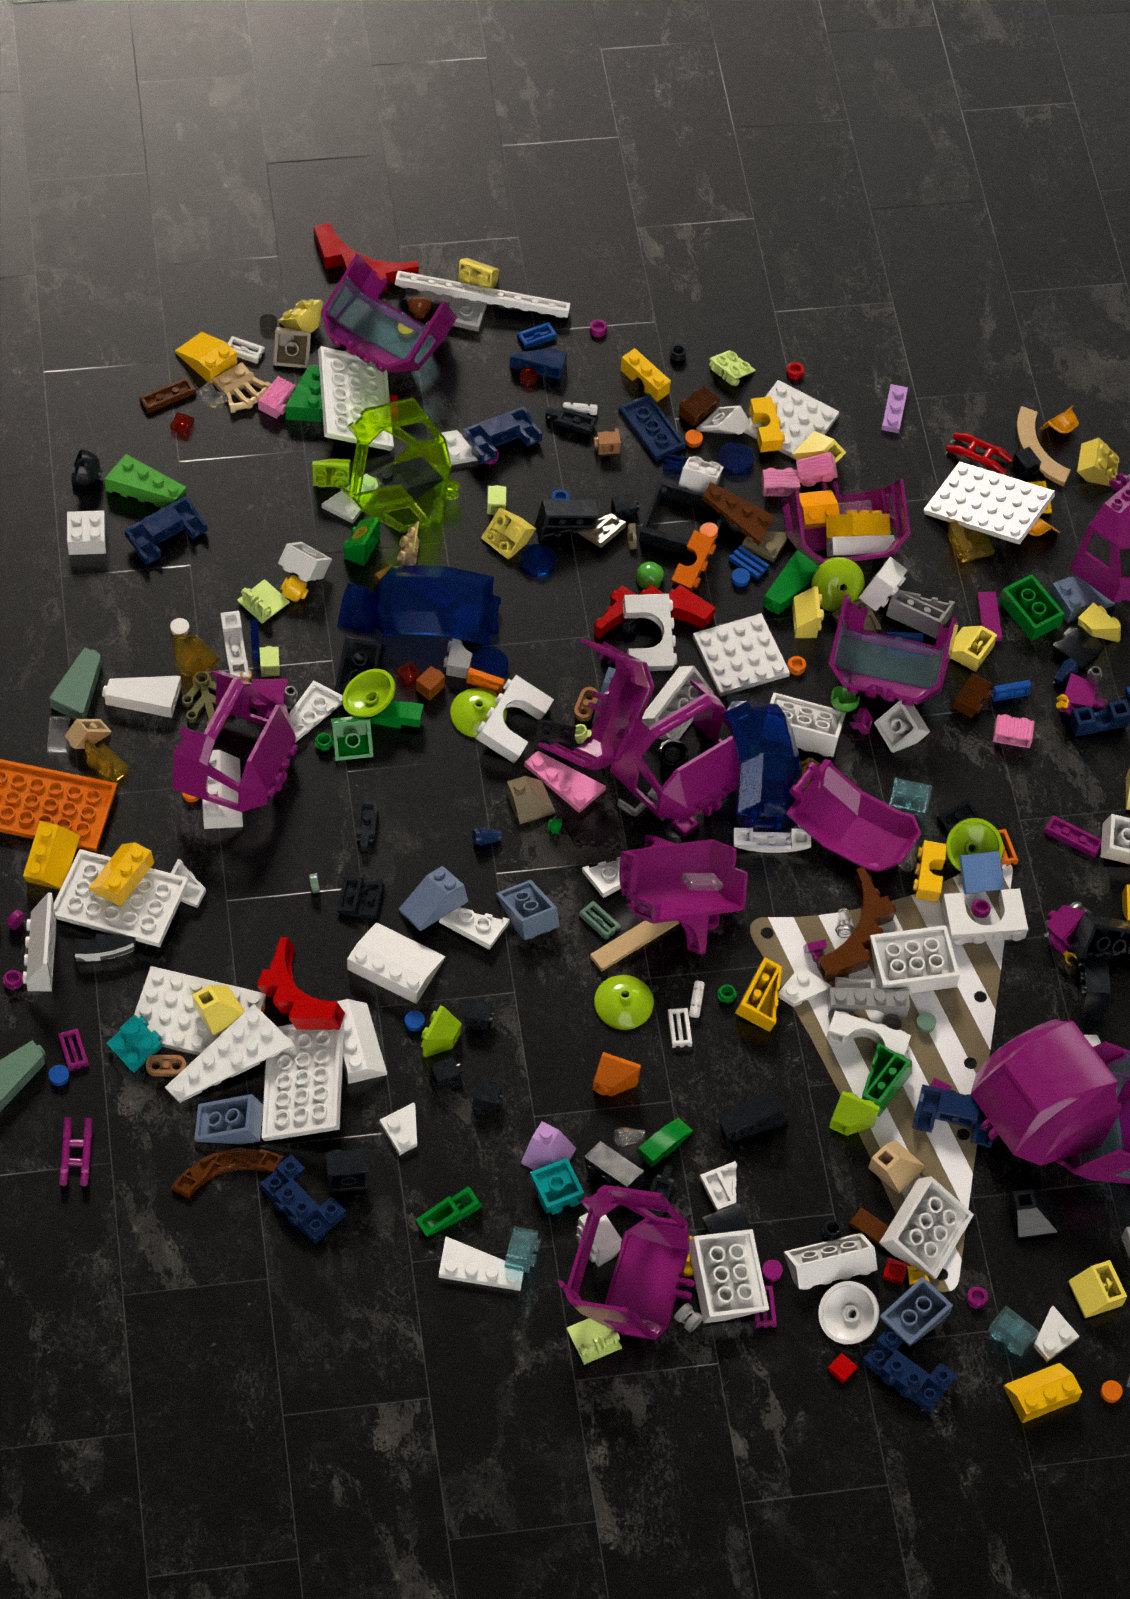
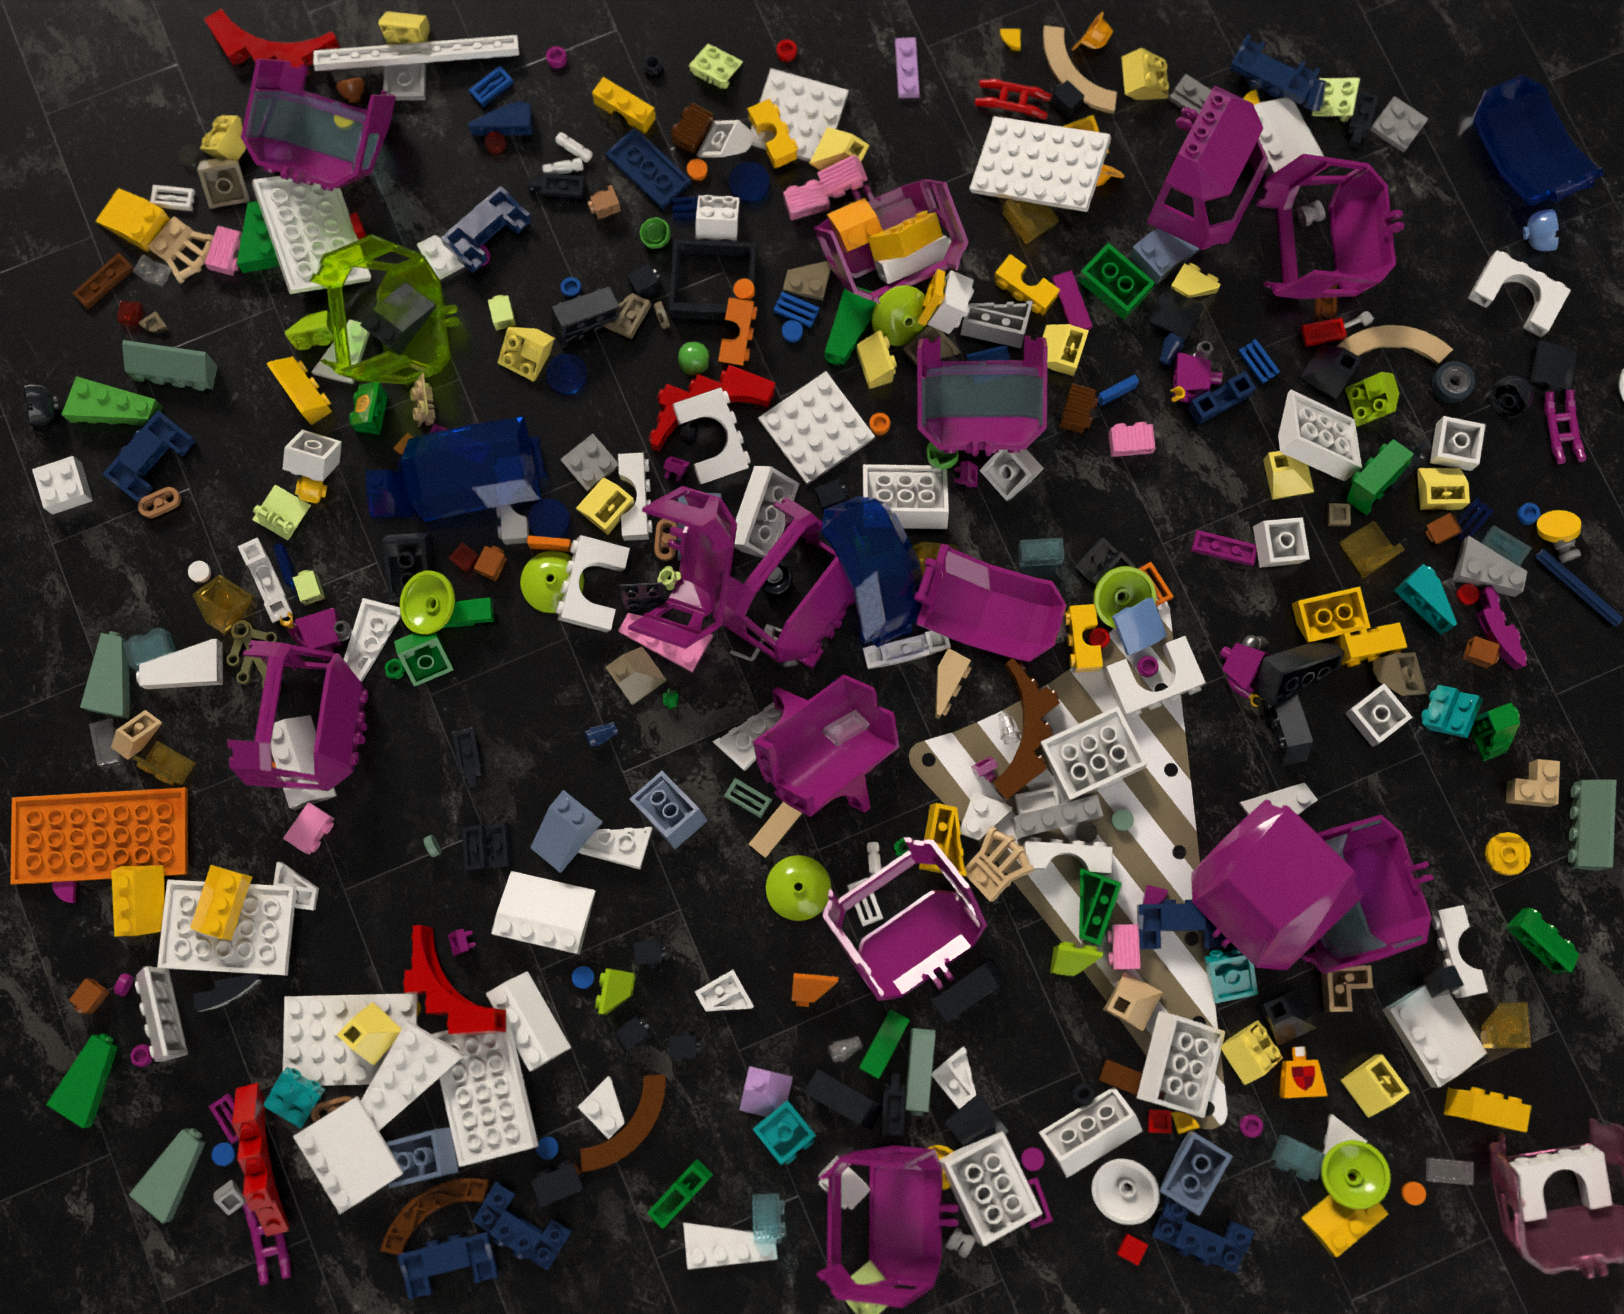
camera: 10 degrees left, 20 degrees up
(53, 1111) = (229, 1197): none -> light grey slope
(90, 1083) = (254, 1160): none -> red arch
(119, 668) = (148, 647): none -> clear light blue brick
(163, 567) = (160, 502): none -> medium nougat plate
(170, 1098) = (348, 1154): none -> white slope
(199, 436) = (154, 323): none -> dark tan tile
(205, 466) = (169, 365): none -> sand green slope
(213, 841) = (309, 828): none -> bright pink brick
(229, 1203) = (447, 1256): none -> dark blue bracket
(309, 512) = (301, 388): none -> yellow slope
(315, 963) = (458, 941): none -> magenta tile
(342, 1143) = (547, 1148): none -> blue tile
(422, 1154) = (635, 1131): none -> reddish brown tile
(534, 1065) = (724, 994): none -> white wing
(537, 631) = (590, 462): none -> light grey plate
(543, 665) = (606, 505): none -> light yellow slope
(564, 682) = (633, 470): none -> white arch
(593, 396) = (573, 147): none -> white axle
(644, 474) = (655, 233): none -> bright green hair
(691, 1166) = (919, 1071): none -> sand green slope
(720, 1067) = (918, 938): none -> magenta windscreen
(745, 515) = (778, 256): reddish brown wing -> none
(798, 1034) = (987, 875): none -> tan plate
(805, 868) = (949, 674): none -> tan slope
(871, 571) = (934, 296): none -> yellow wing
(901, 1120) = (1124, 947): none -> bright pink brick
(940, 583) = (1009, 278): none -> yellow arch
(947, 875) = (1098, 637): none -> red tile
(990, 408) = (1011, 38): none -> yellow tile
(991, 1167) = (1230, 975): none -> teal plate
(992, 1235) = (1251, 1052): none -> light yellow slope
(1033, 1267) = (1301, 1076): none -> light orange torso
(1064, 1343) = (1367, 1166): none -> lime dish
(1090, 1196) = (1338, 986): none -> tan brick

